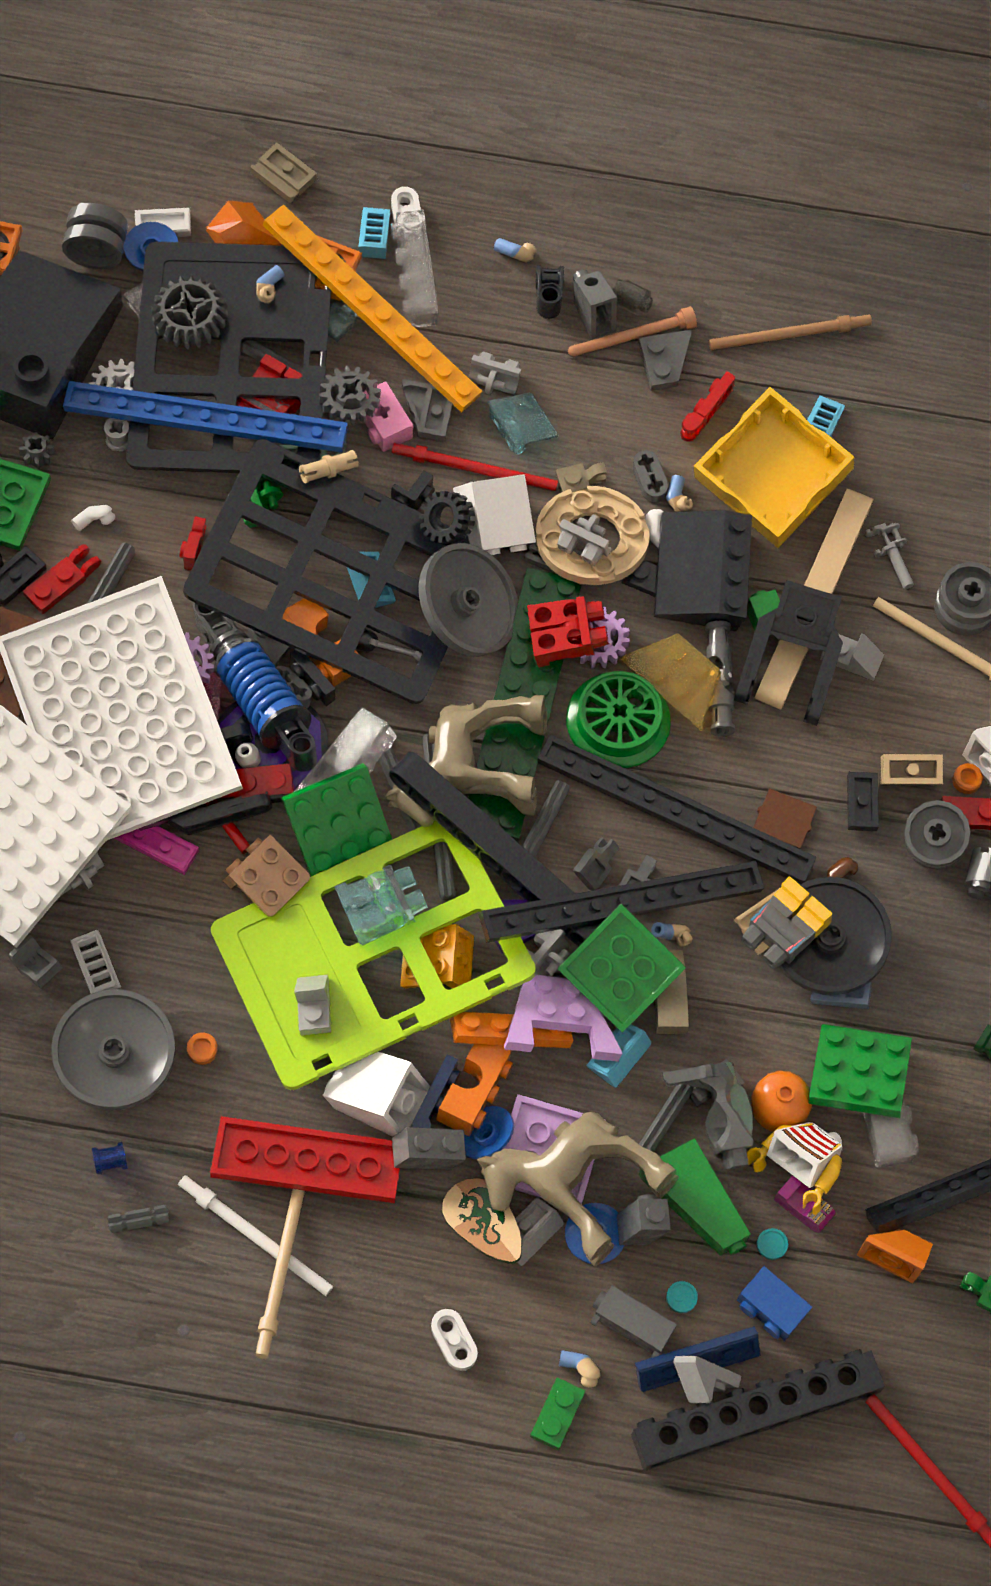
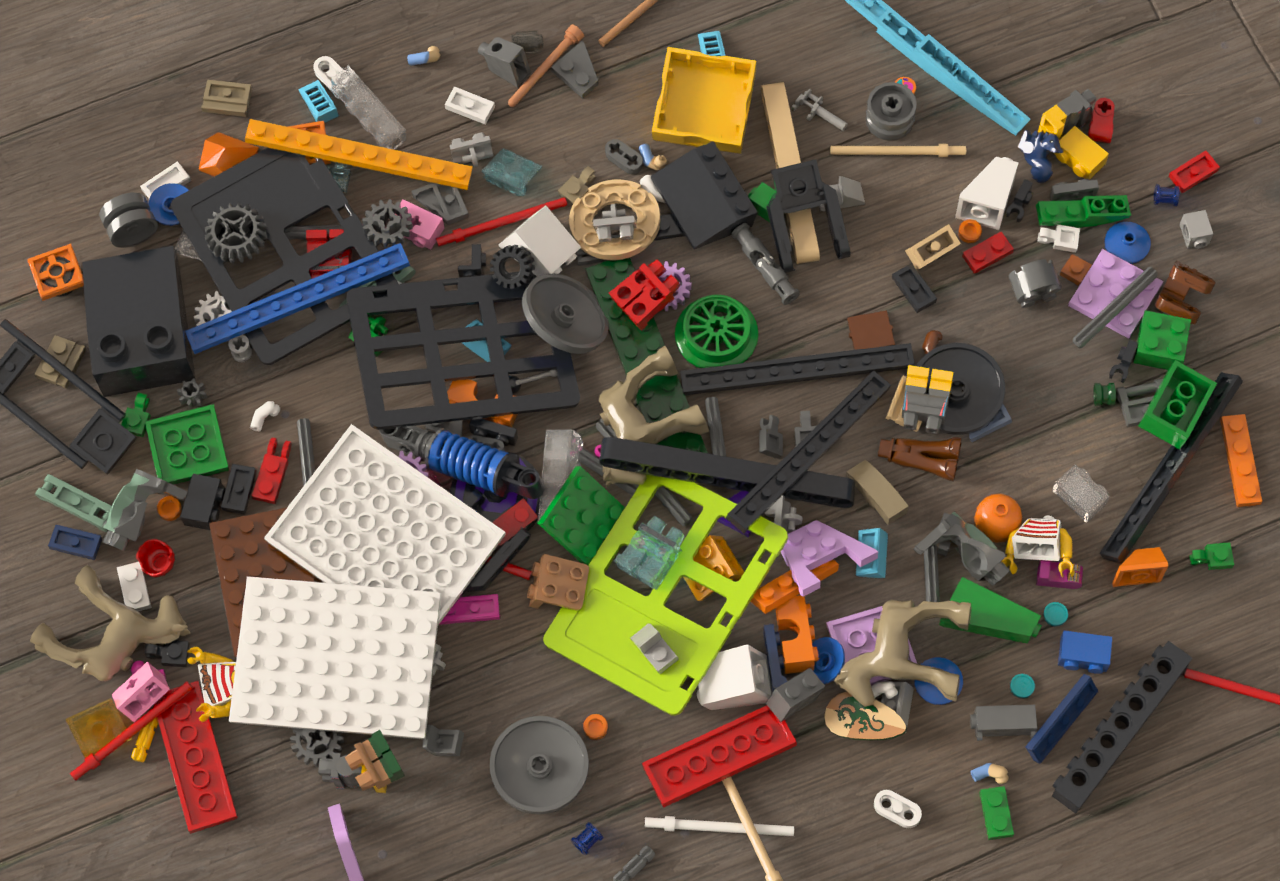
camera: 25 degrees left, 0 degrees up
(84, 942) = (489, 710): light grey slope -> none
(190, 550) = (348, 396): red plate -> none
(249, 760) = (491, 515): white hose -> none
(266, 283) = (274, 181): arm -> none
(328, 466) = (408, 280): tan pin -> none
(526, 327) = (469, 105): none -> white plate
(529, 1201) = (885, 687): none -> white arm
(549, 286) = (465, 68): black piece -> none
(621, 967) = (839, 494): green plate -> none
(643, 1221) = (967, 651): dark grey brick -> none
(672, 932) = (851, 451): arm -> none
(678, 675) = (739, 277): clear yellow wing -> none
(703, 1377) = (1076, 728): light grey slope -> none
(706, 408) = (629, 87): red hinge -> none
(733, 974) = (914, 454): none -> reddish brown piece
(860, 1071) = (1036, 465): green plate -> none
(939, 817) = (982, 266): dark grey wheel -> none

